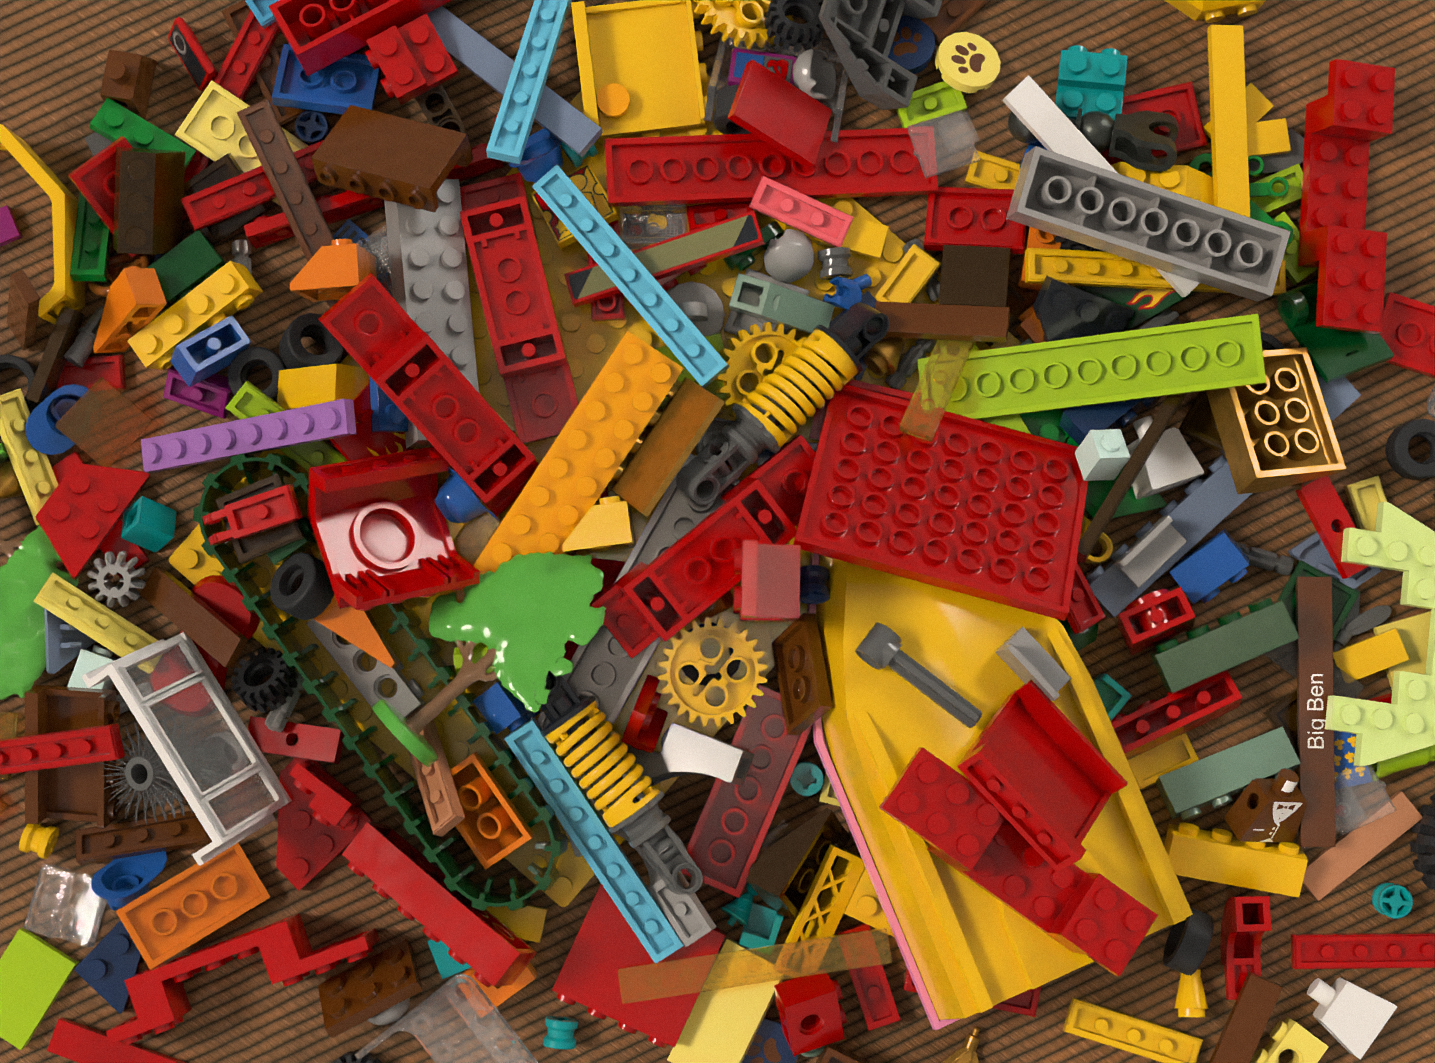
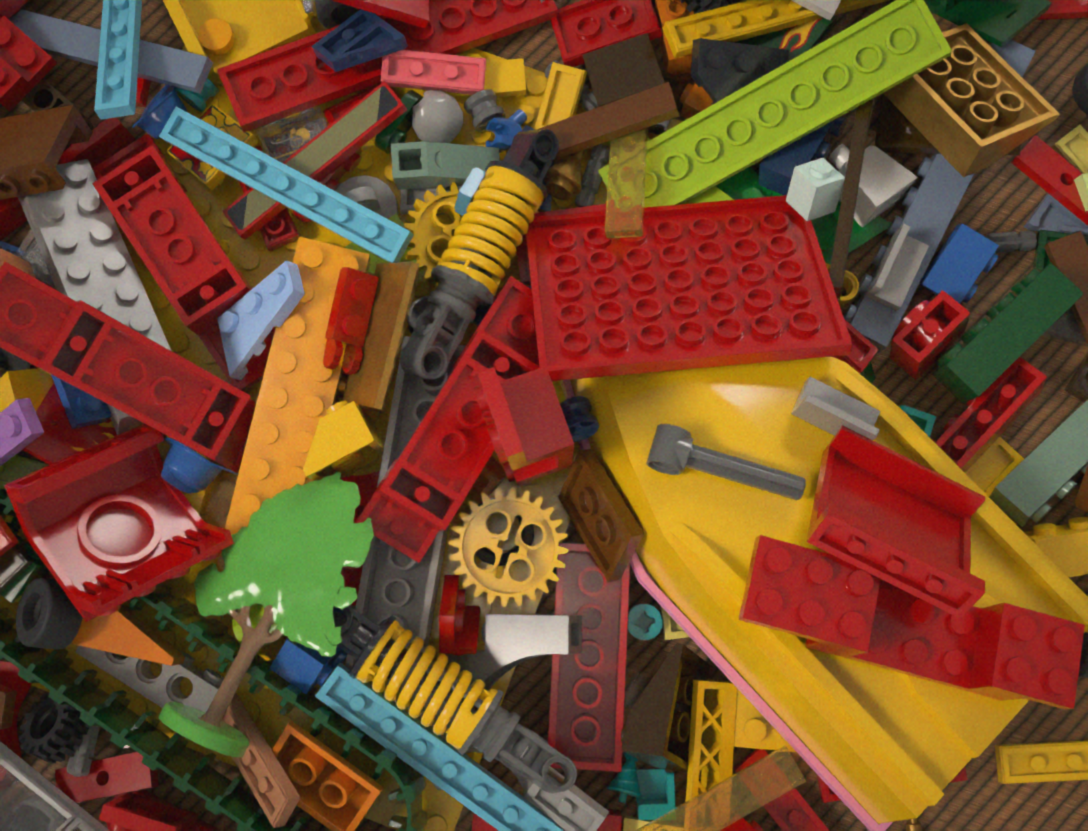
camera: 20 degrees left, 5 degrees down
(565, 385) = (256, 313): none -> light blue wing
(645, 423) = (349, 319): none -> red hinge
(742, 162) = (358, 41): none -> dark blue wing
(793, 341) = (468, 189): none -> tile

